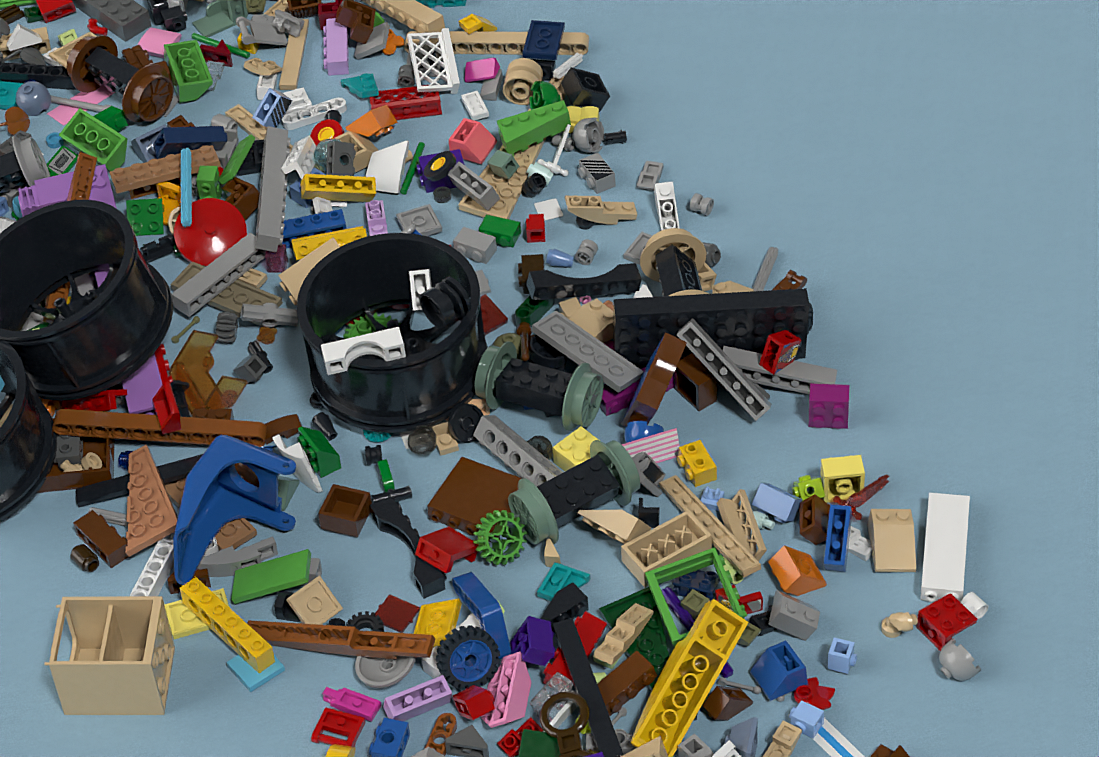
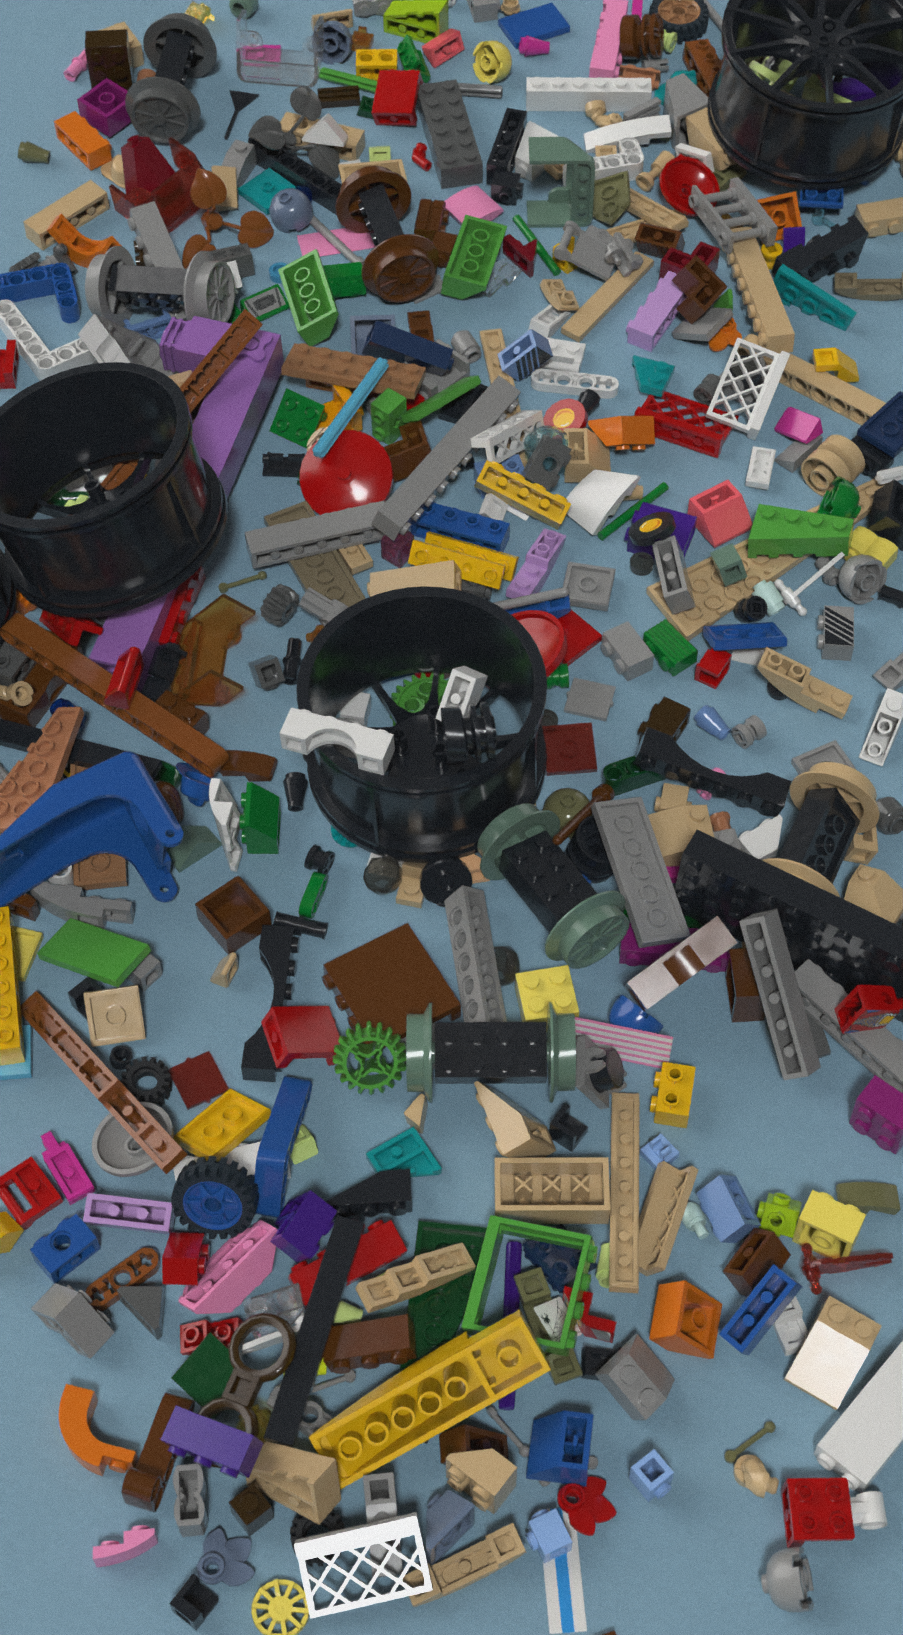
camera: 30 degrees right, 10 degrees up
(362, 545) = (225, 970): none -> tan slope
(542, 200) = (744, 636): none -> blue tile
(745, 704) = (483, 1476): none -> tan slope
(857, 448) = (870, 1196): none -> olive slope
(876, 626) = (730, 1456): none -> olive hinge

